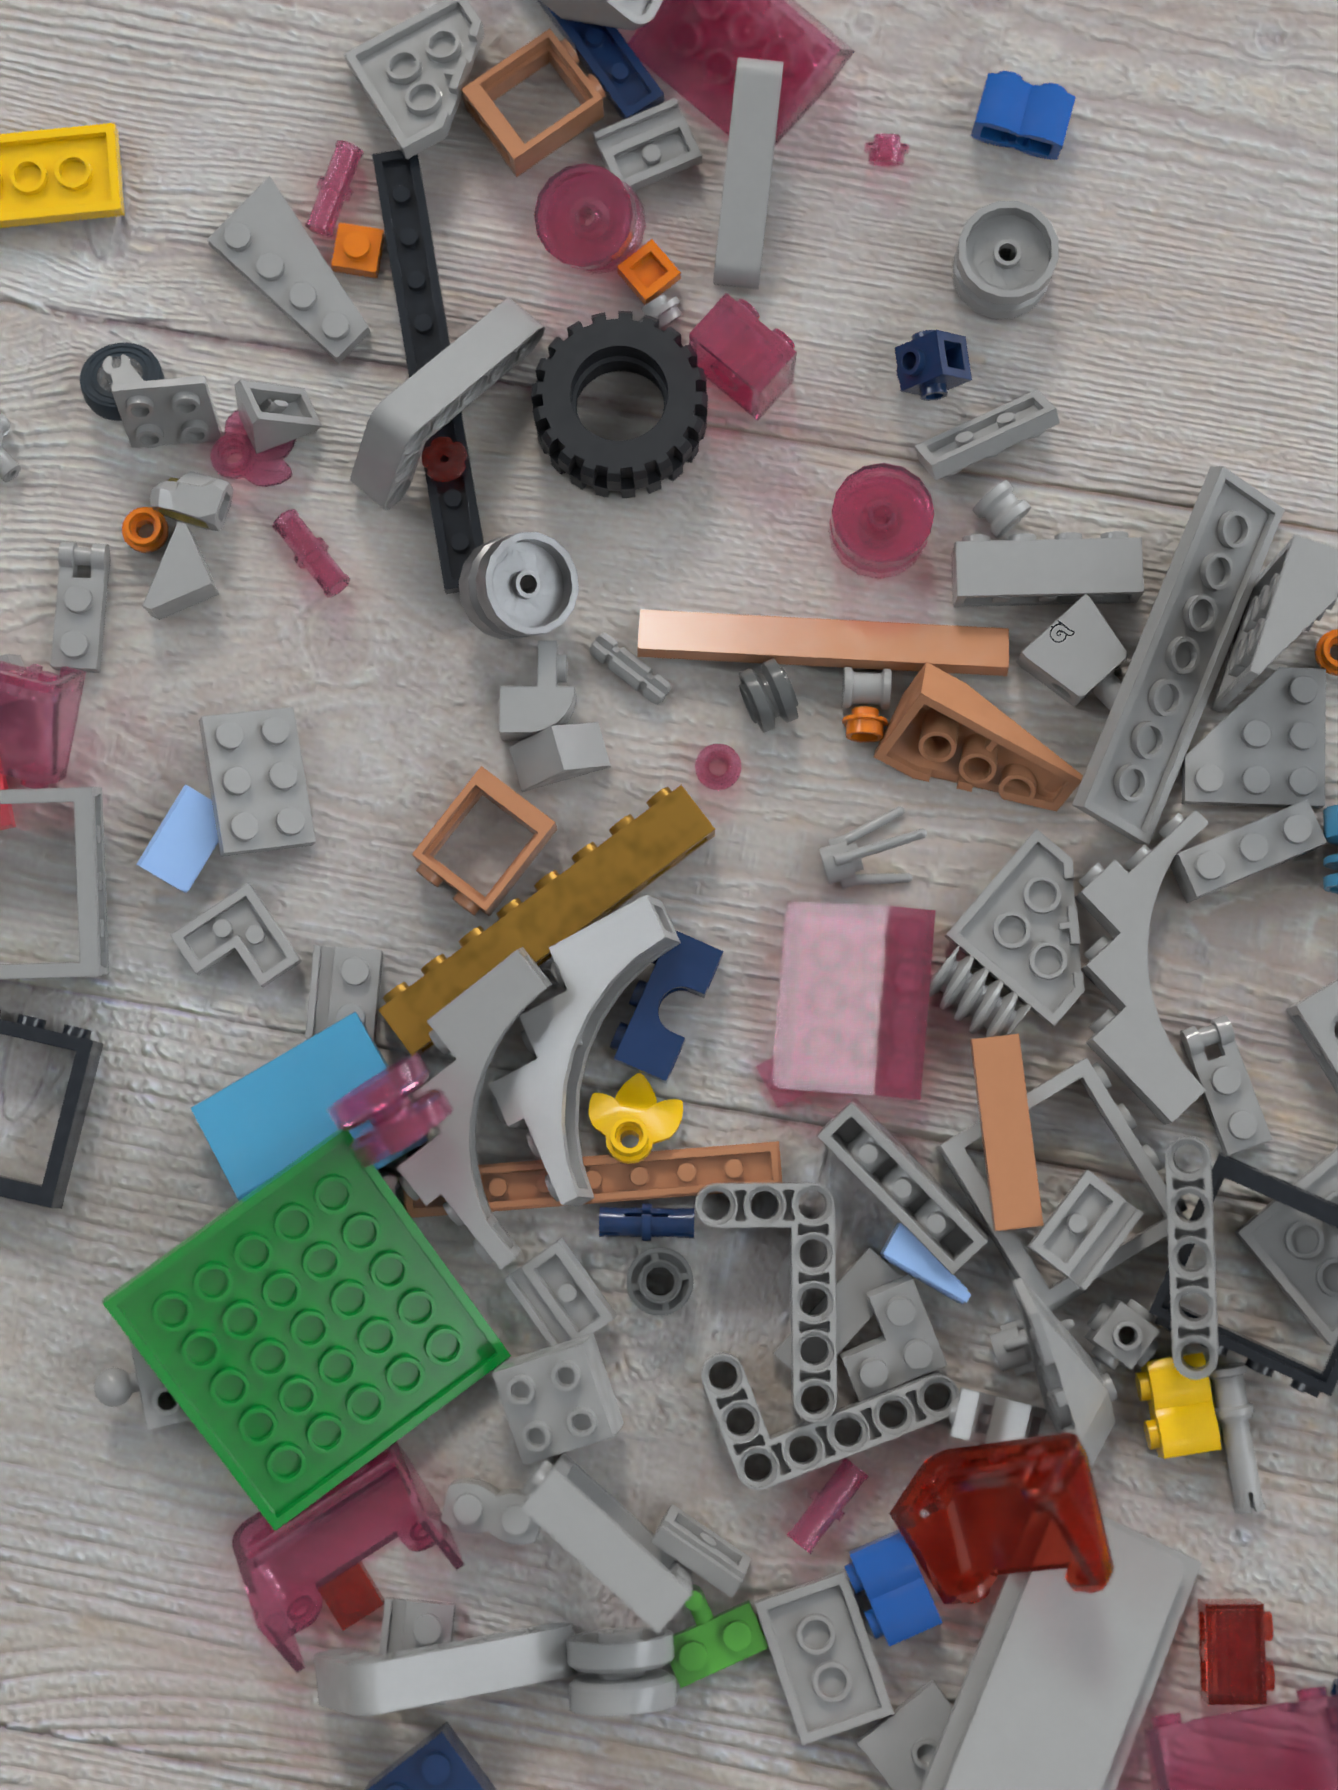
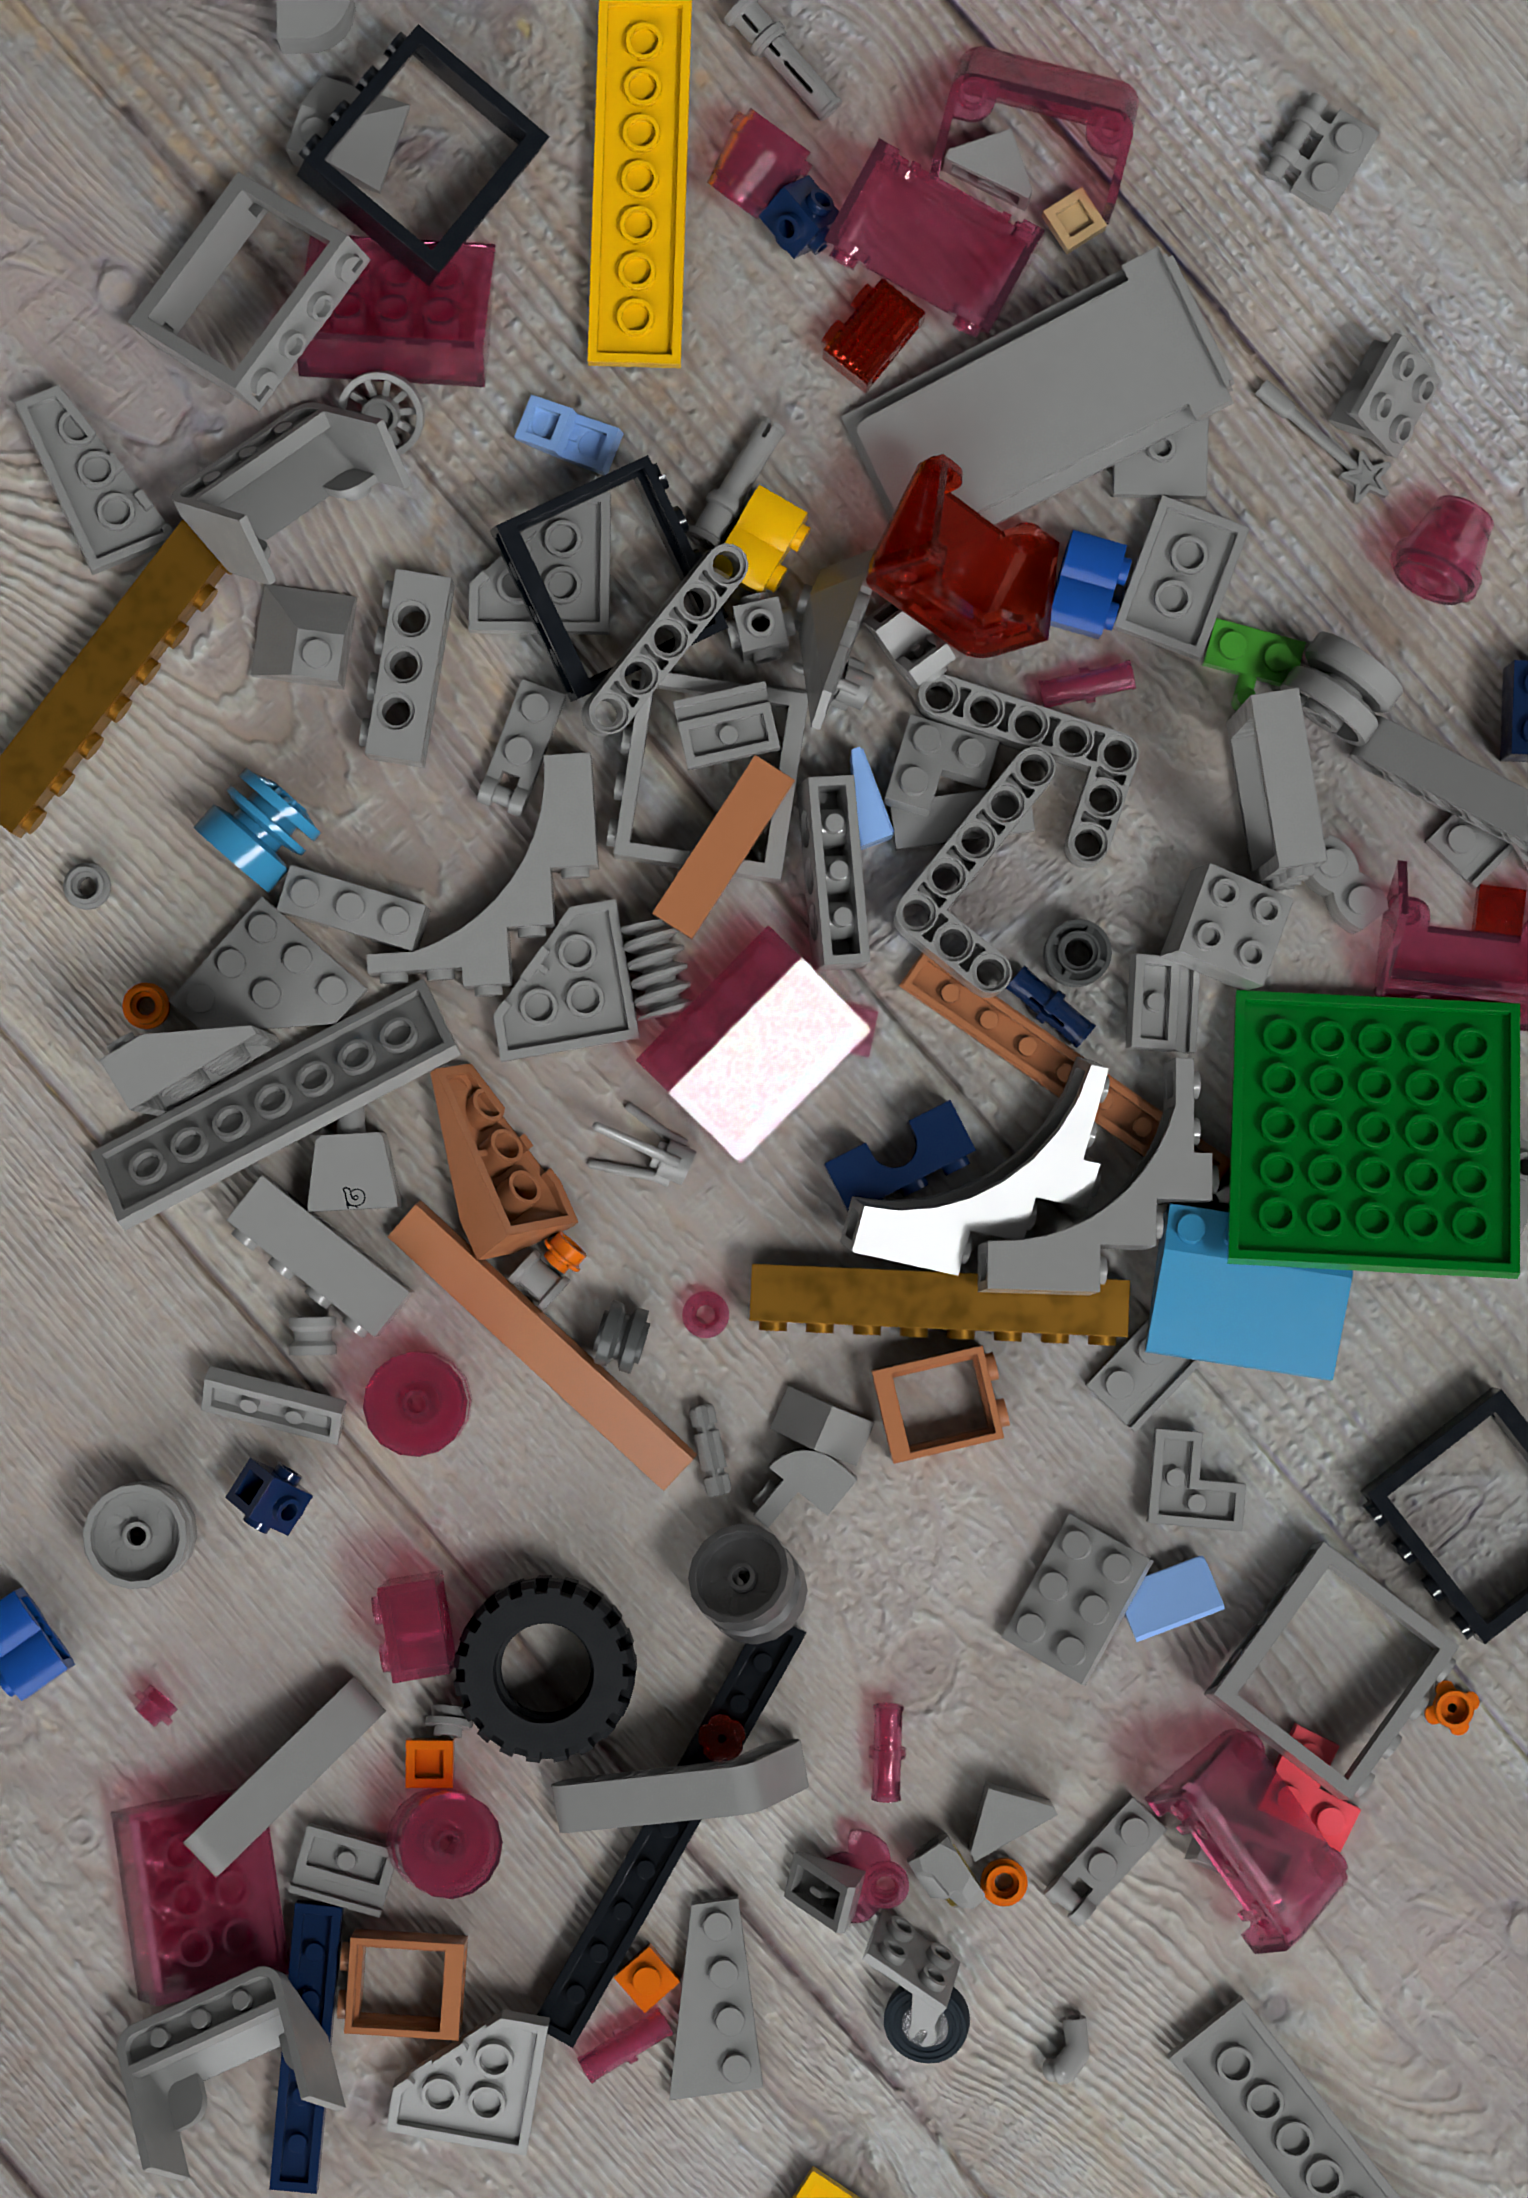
camera: 145 degrees left, 5 degrees up
(393, 1115) = (1185, 1242): clear pink wheel -> none
(636, 1114) = (991, 1097): yellow plate -> none
(701, 1550) = (1209, 728): light grey plate -> none

